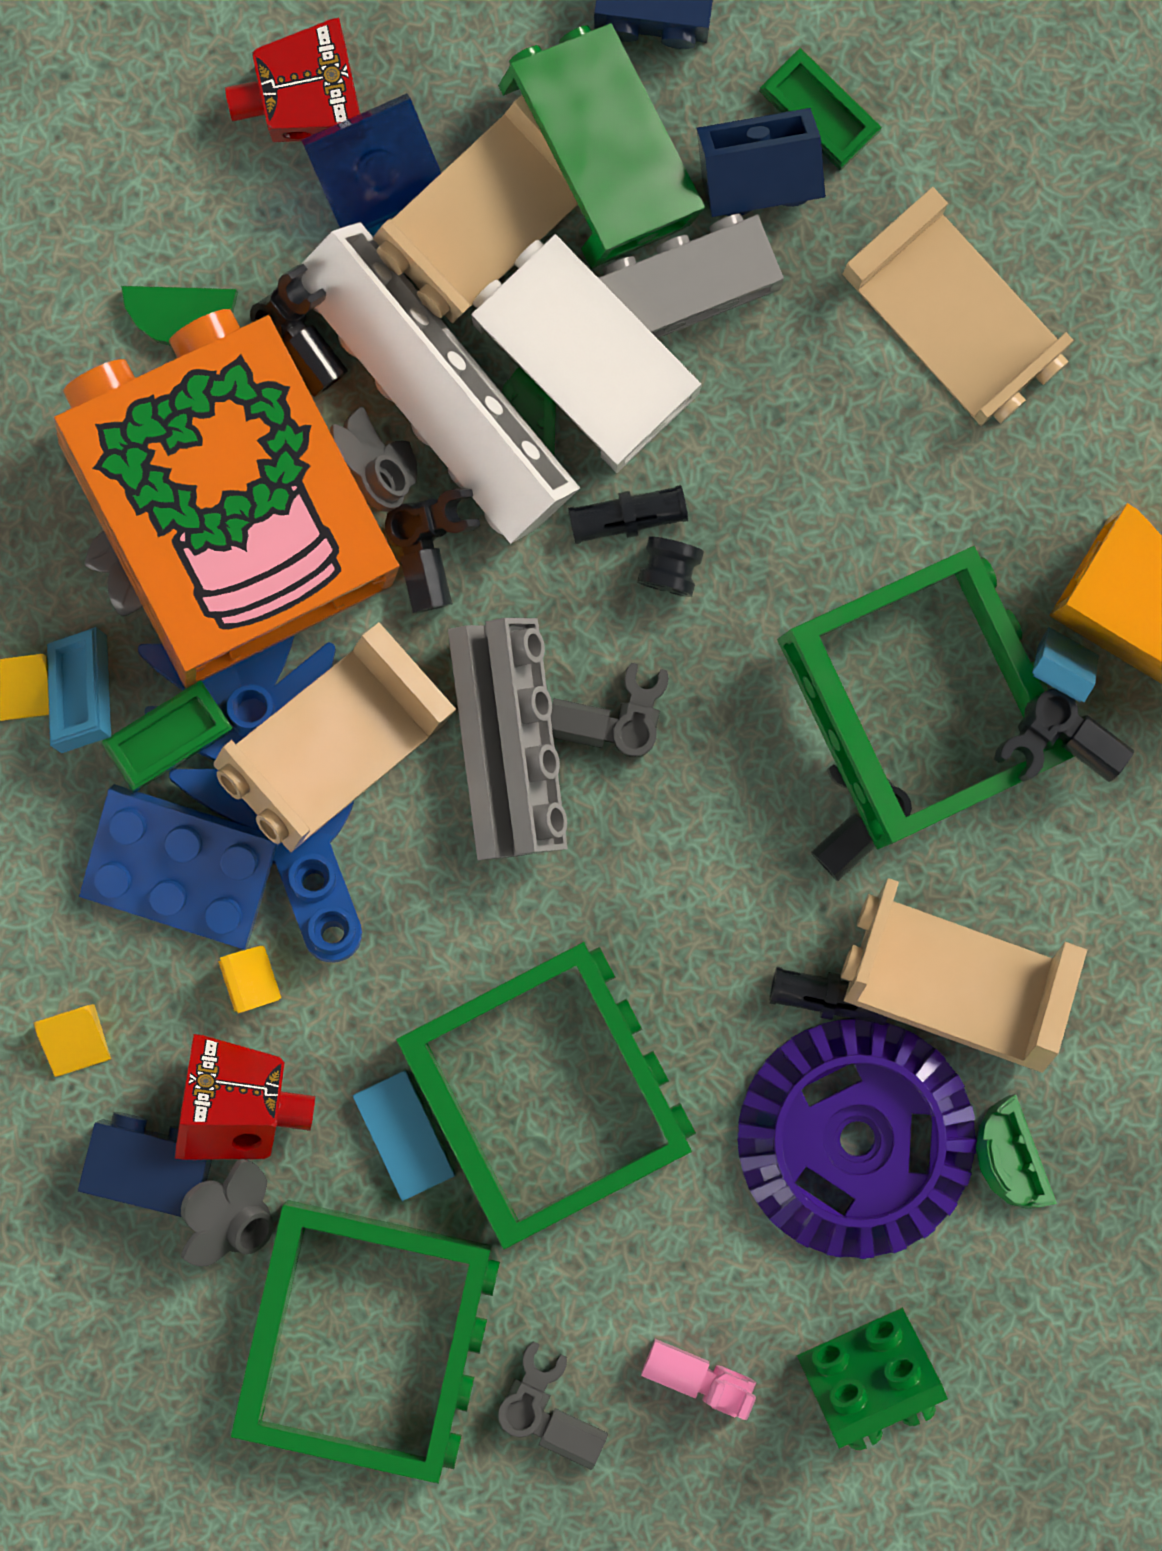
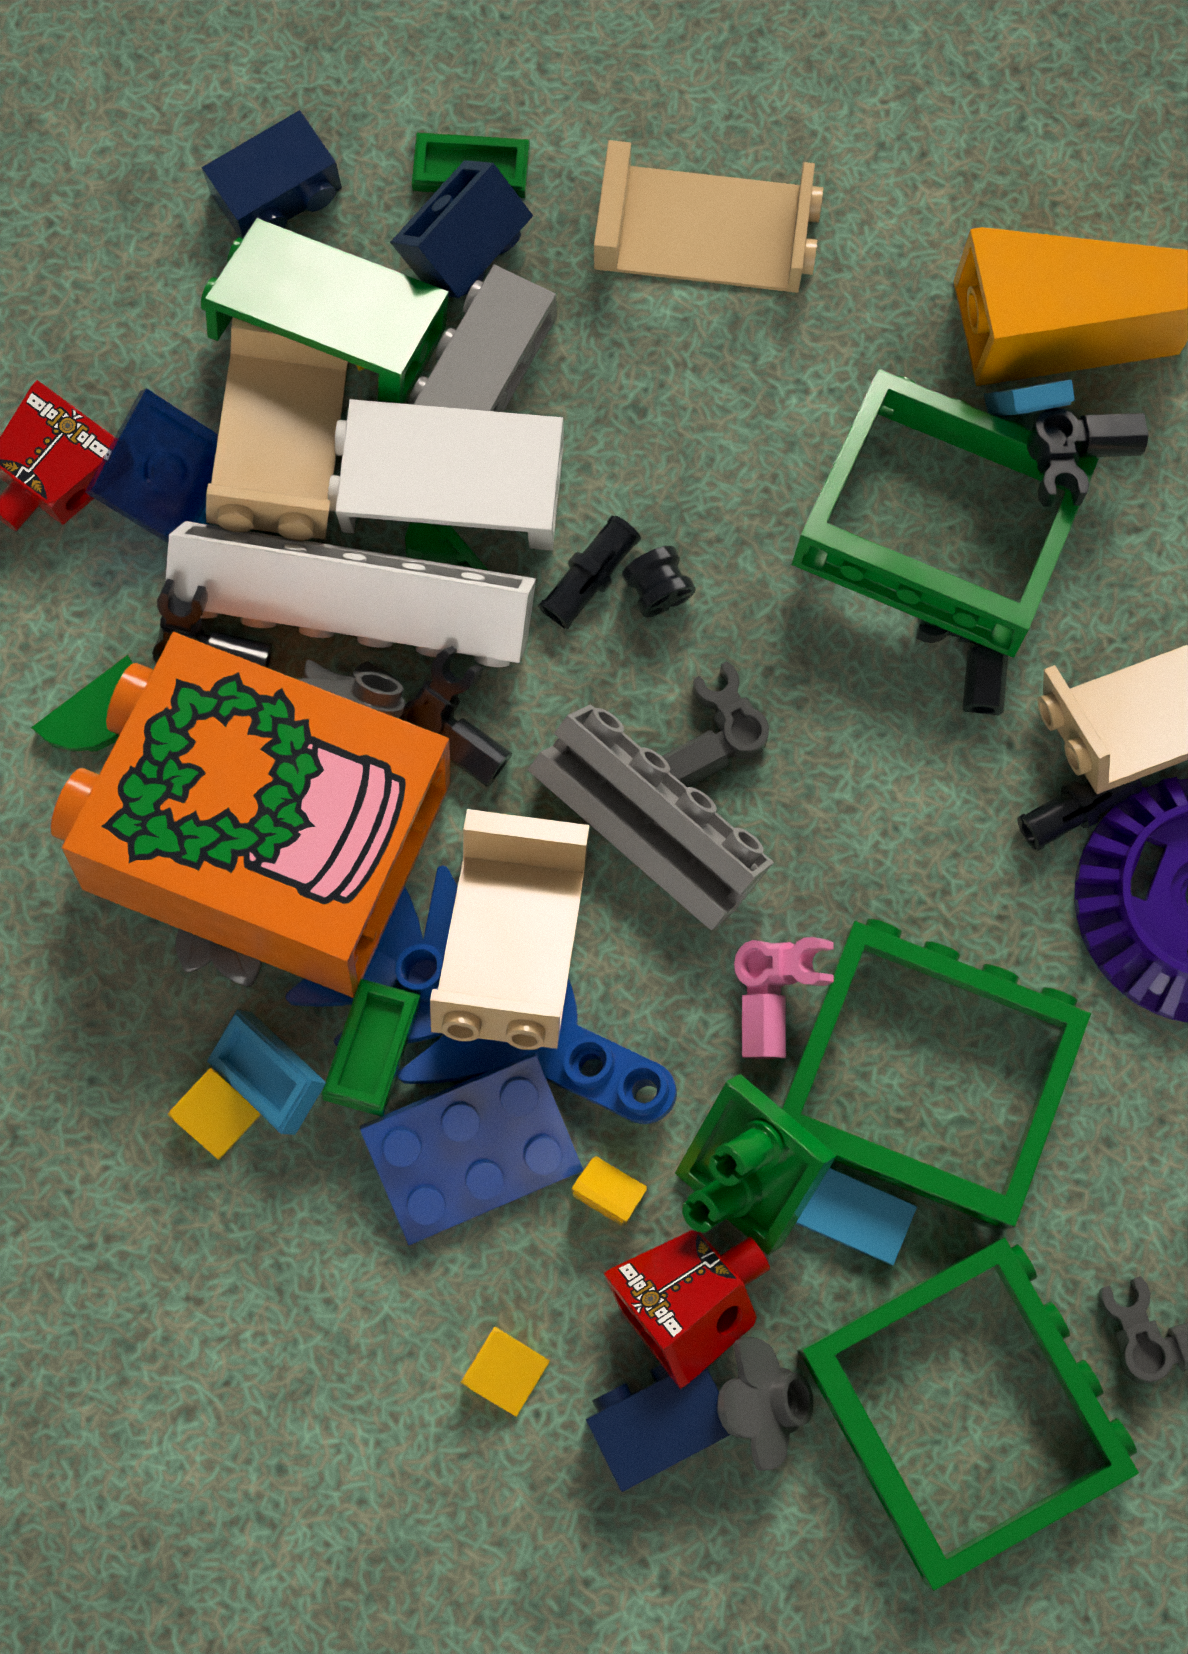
camera: 40 degrees left, 10 degrees down
(355, 1050) = (751, 1167): none -> green plate
(493, 920) = (765, 971): none -> bright pink bar

